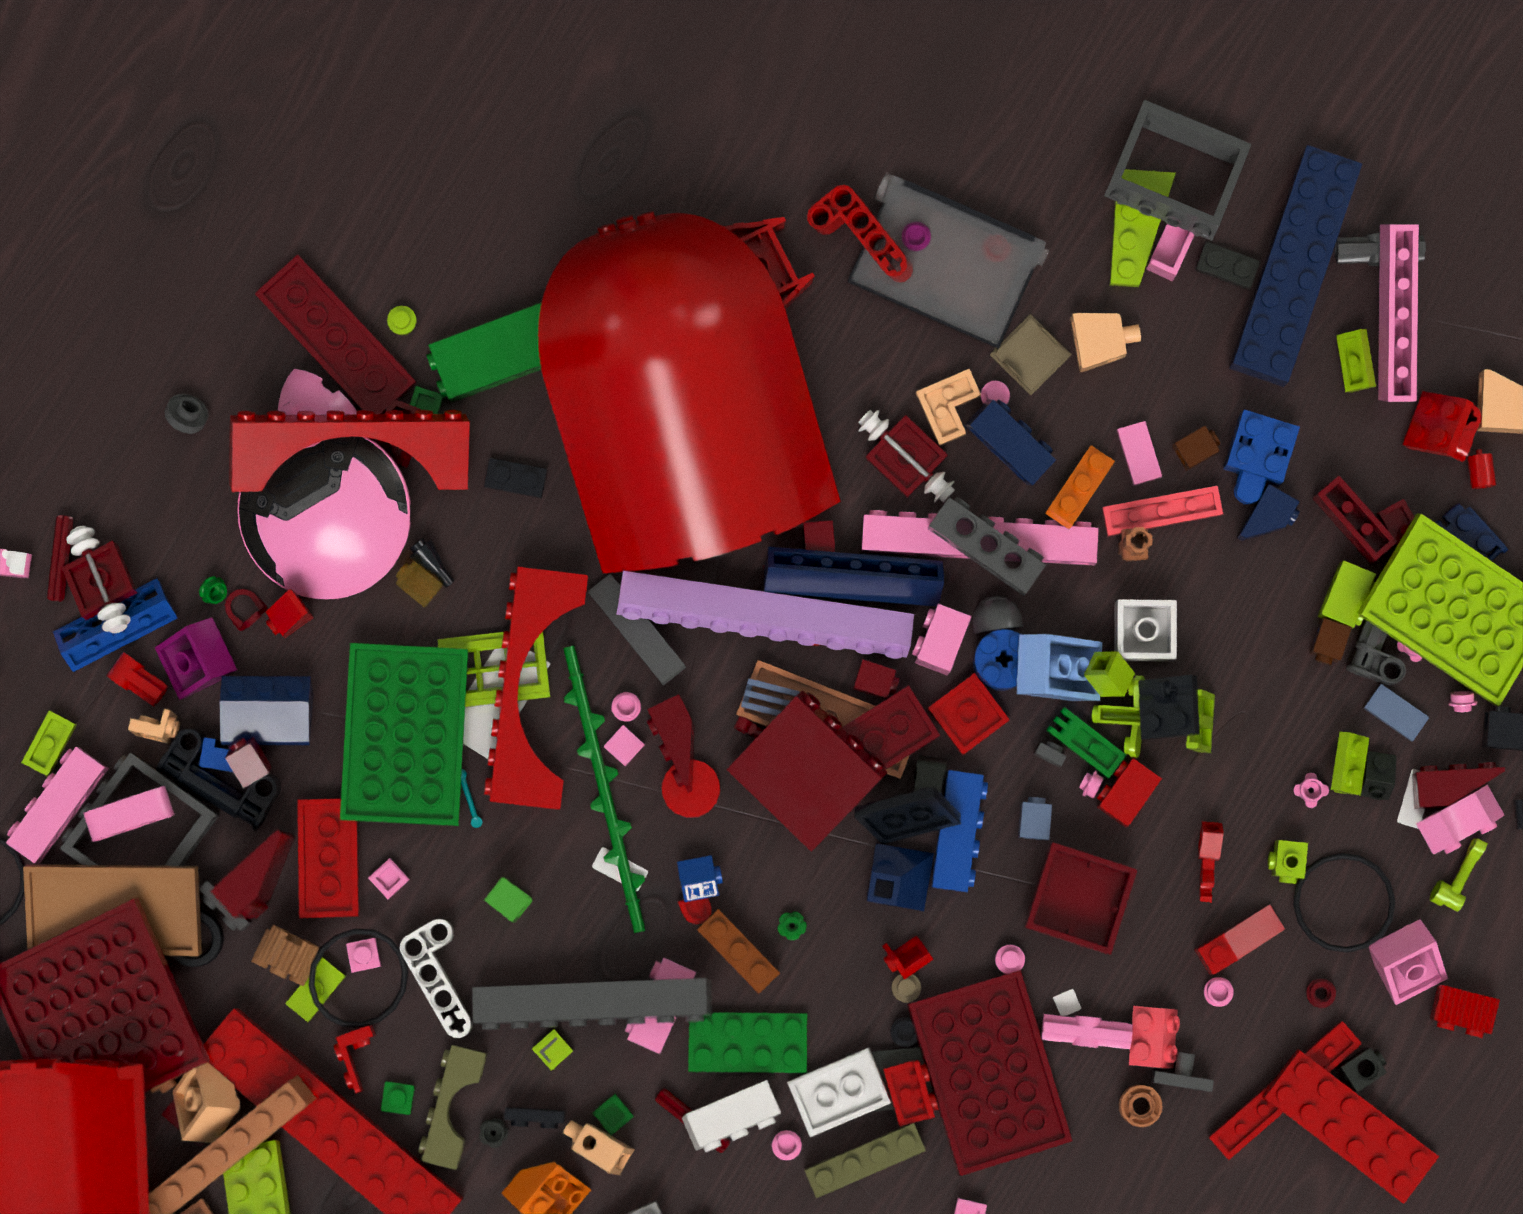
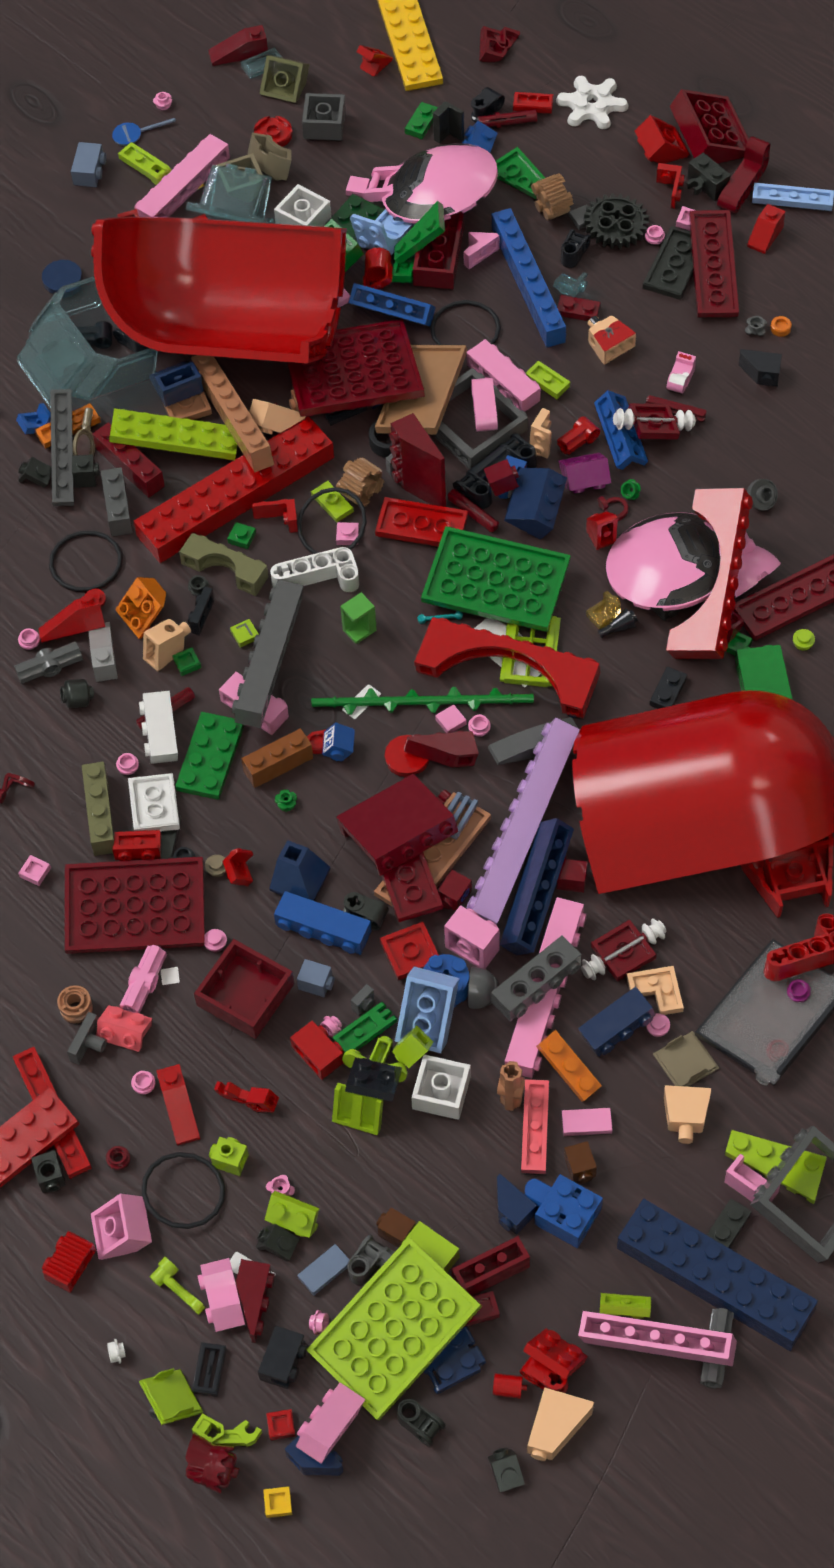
camera: 110 degrees right, 25 degrees down
(290, 794) = (473, 510): none -> dark red axle
(389, 878) = (396, 558): bright pink tile -> none
(907, 815) = (343, 880): black plate -> none

